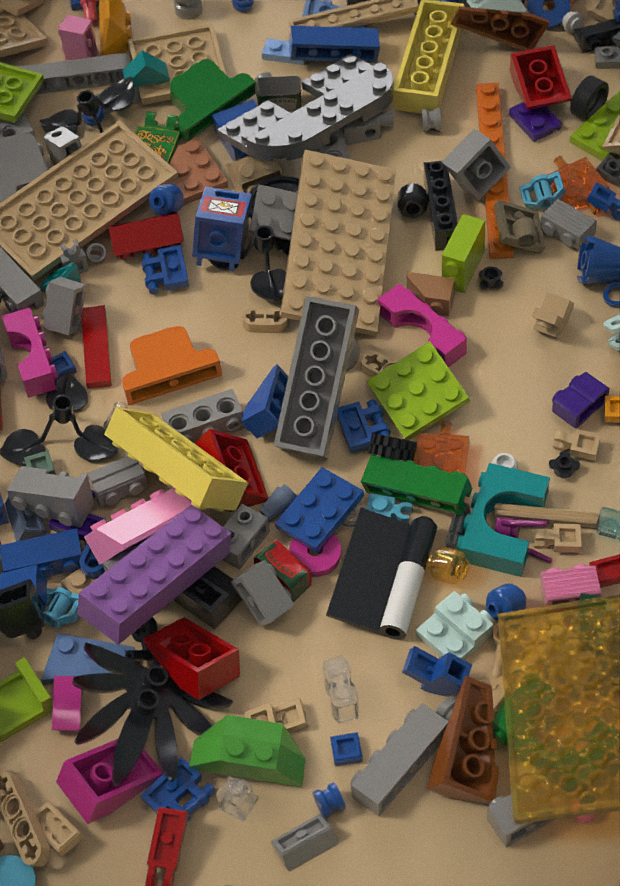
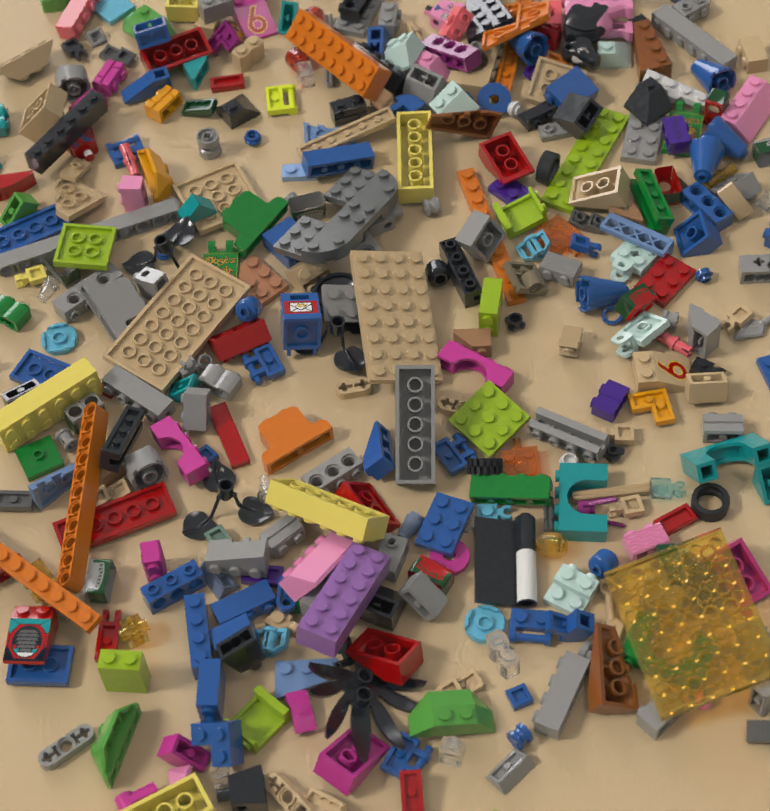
camera: 15 degrees left, 0 degrees up
(106, 280) = (221, 382): none -> light grey brick
(332, 641) = (482, 622): none -> medium azure tile
(386, 654) = (530, 621): none -> blue plate
(513, 431) = (569, 435): none -> light grey brick
(539, 149) = (521, 214): none -> lime panel

